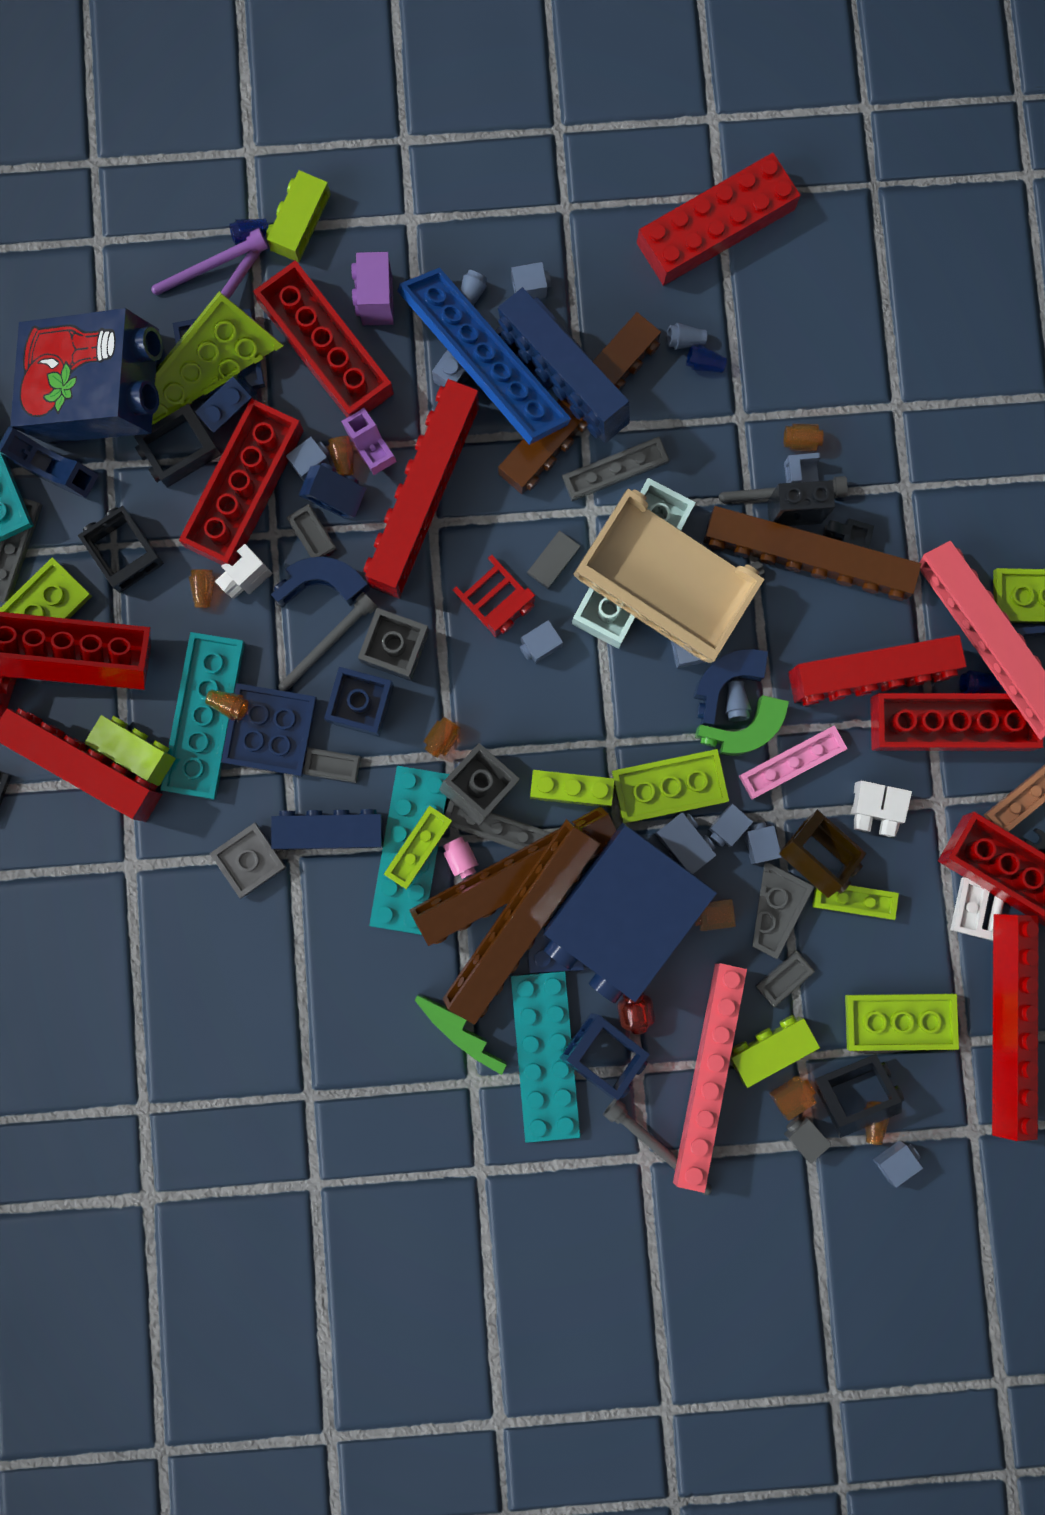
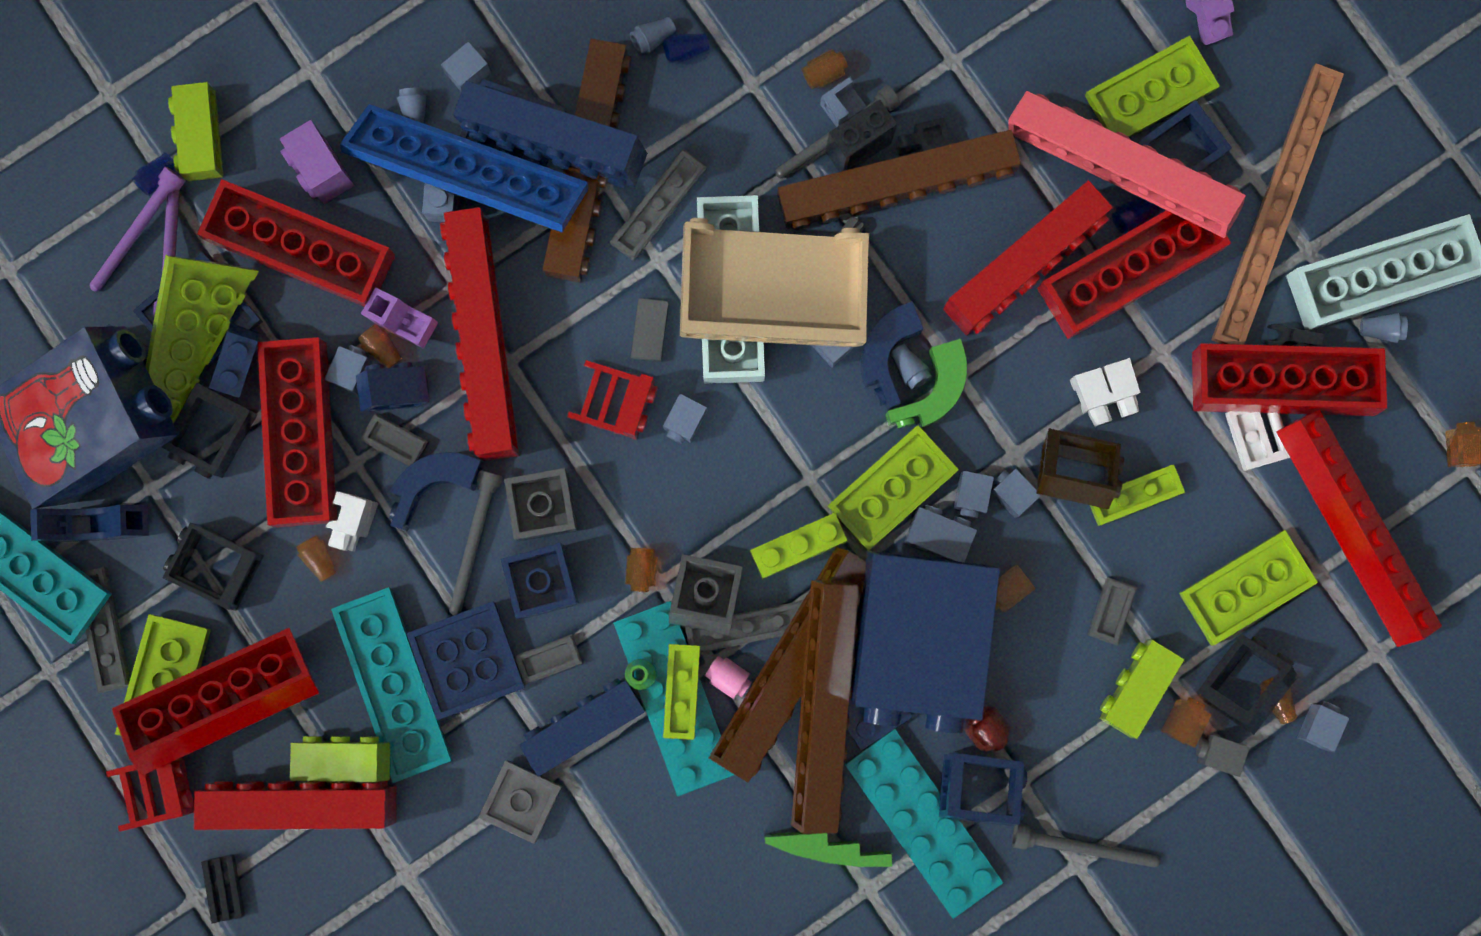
camera: 25 degrees left, 0 degrees up
(228, 704) = (411, 659): clear orange cone -> none
(401, 819) = (648, 669): none -> bright green cone
(709, 1077) = (1095, 750): coral brick -> none
(778, 909) = (1067, 546): dark grey wing -> none
(793, 762) = (998, 395): bright pink plate -> none

